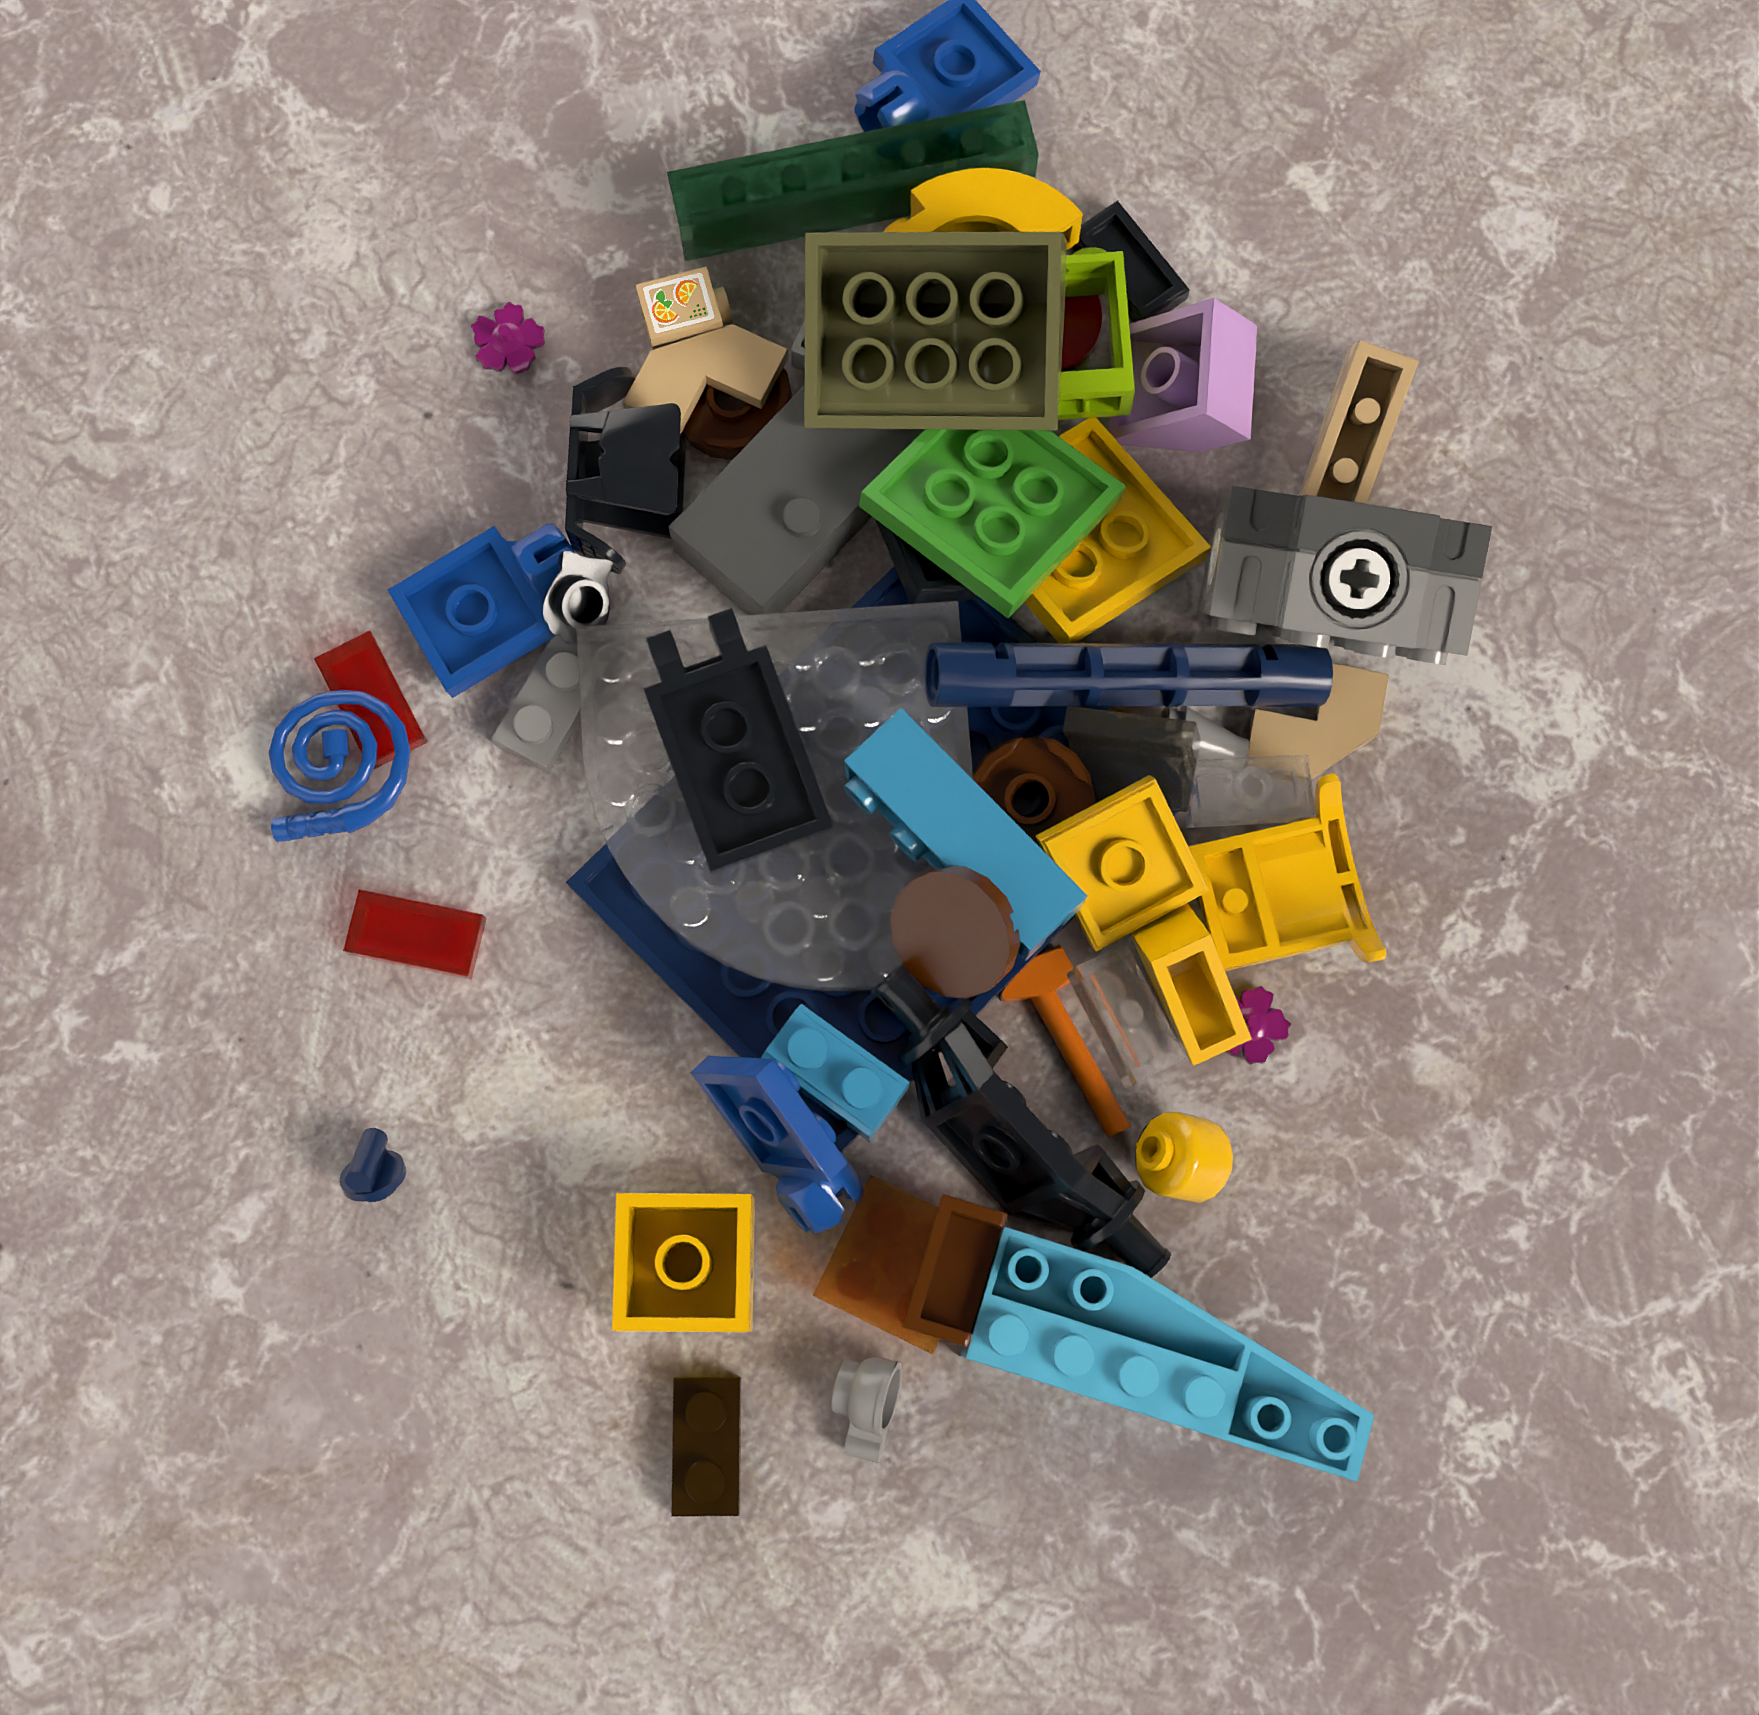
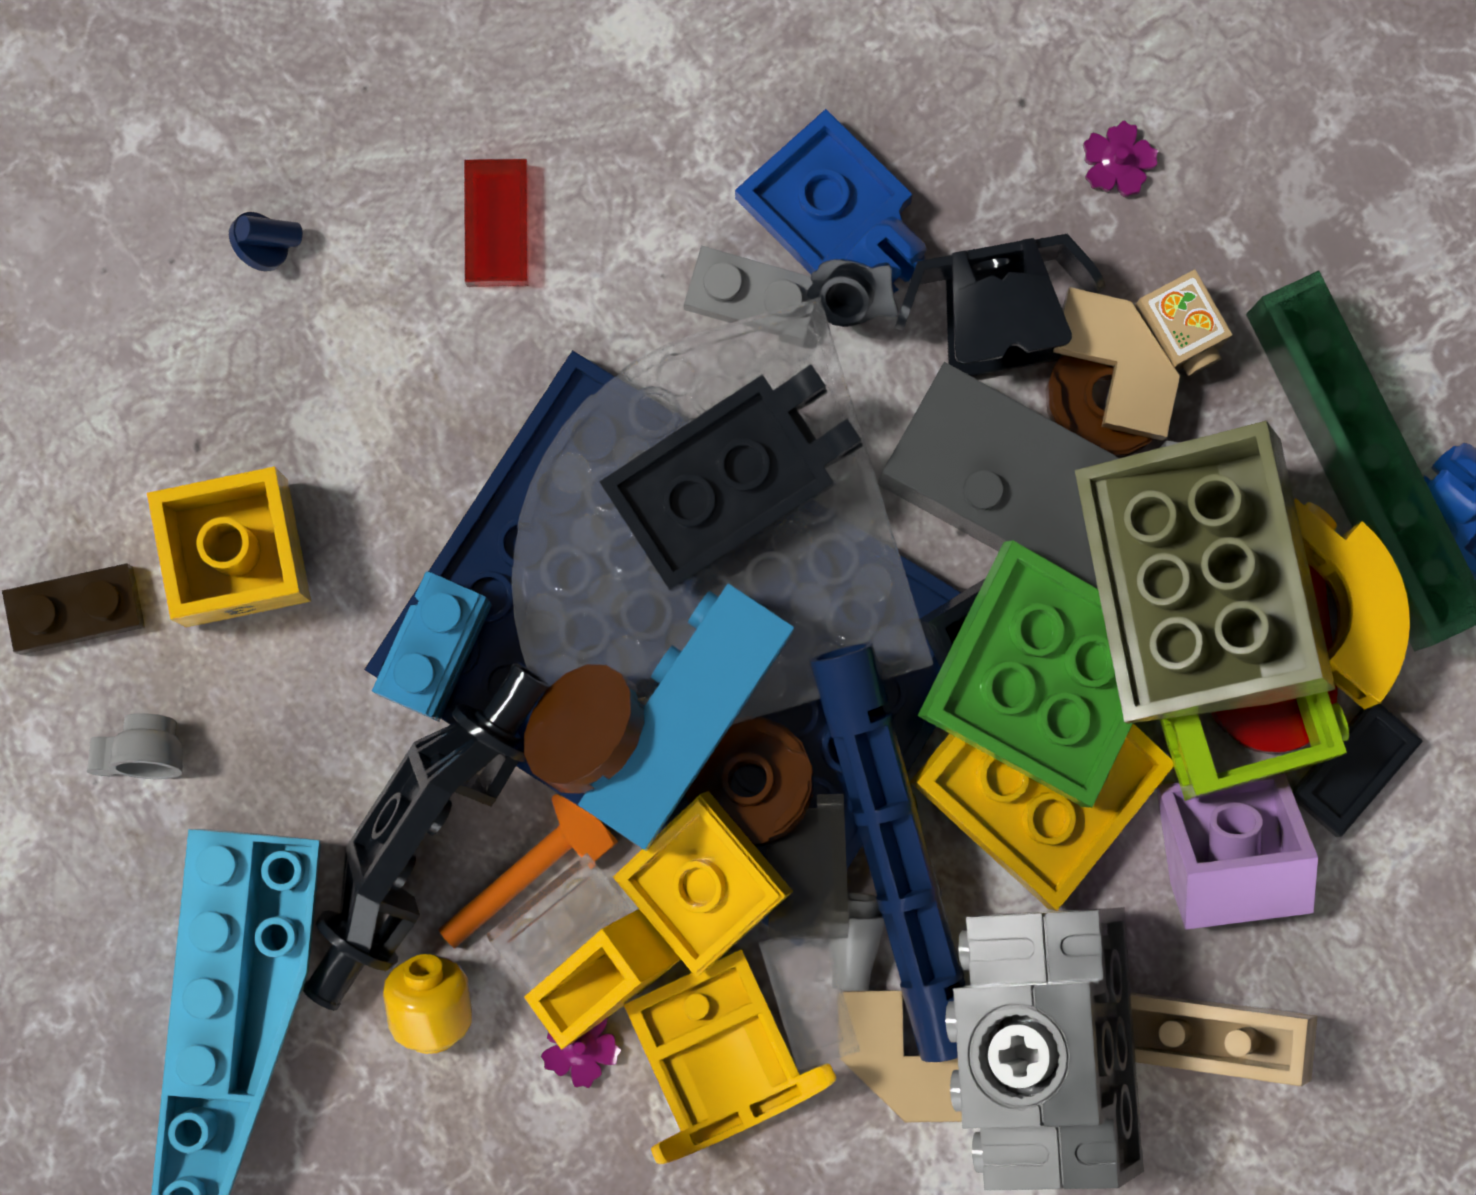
camera: 75 degrees right, 5 degrees up
(336, 748) = (658, 101): blue piece -> none
(363, 667) = (716, 122): clear red tile -> none
(782, 1136) = (344, 644): blue plate -> none
(880, 1259) = (274, 753): clear orange plate -> none
(954, 1270) = (266, 800): reddish brown panel -> none

